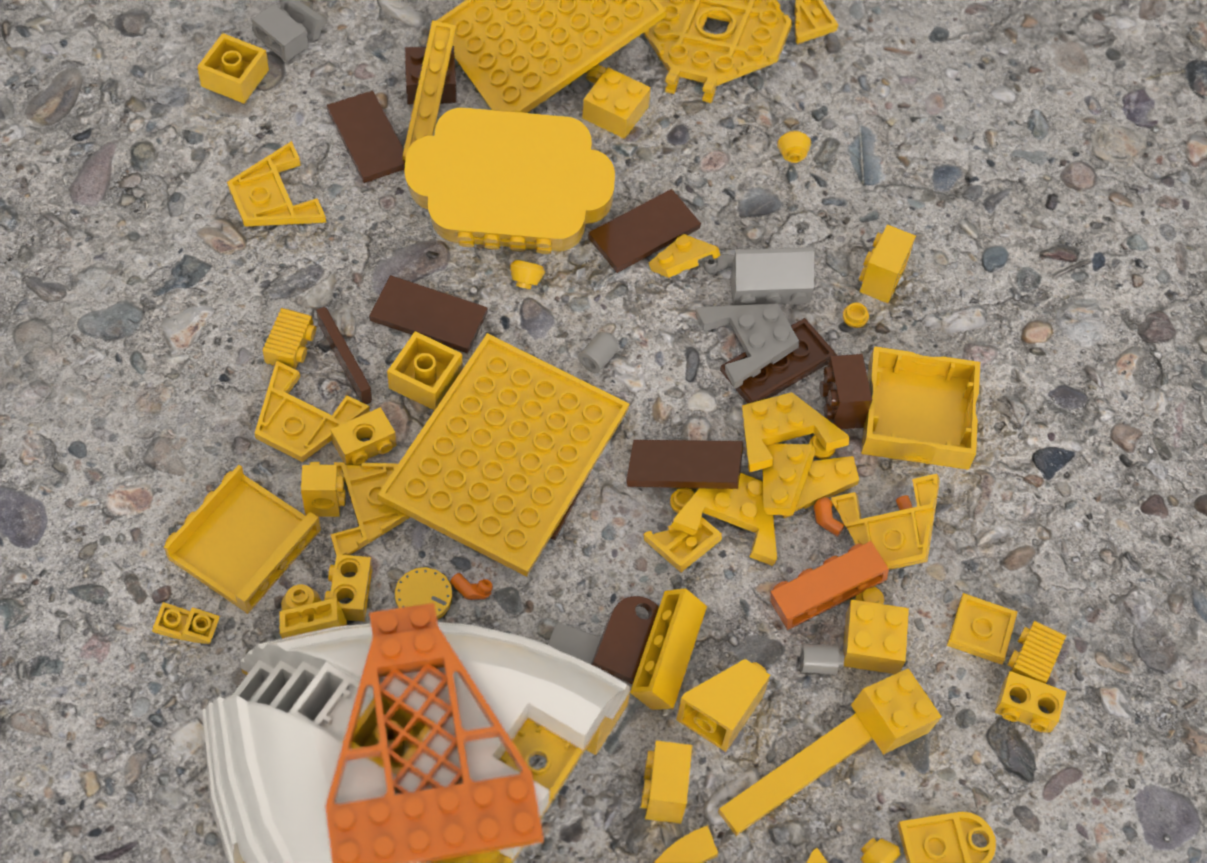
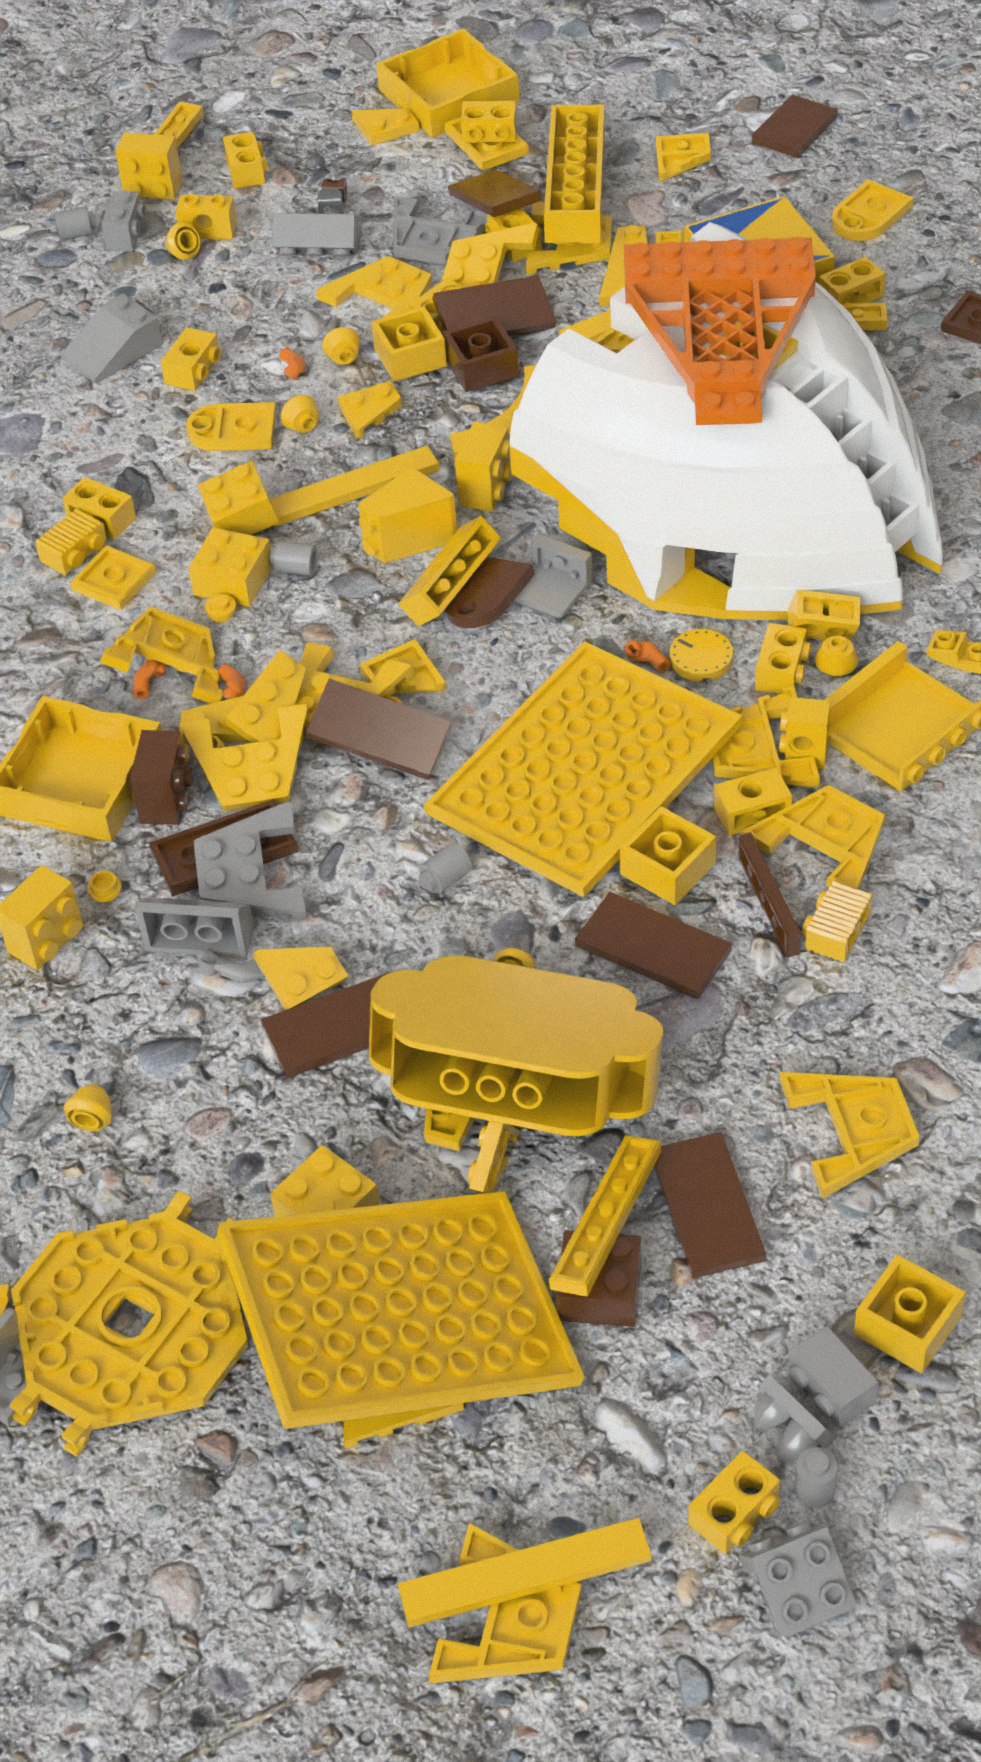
camera: 160 degrees left, 10 degrees down
(829, 584) = (260, 607): orange brick -> none

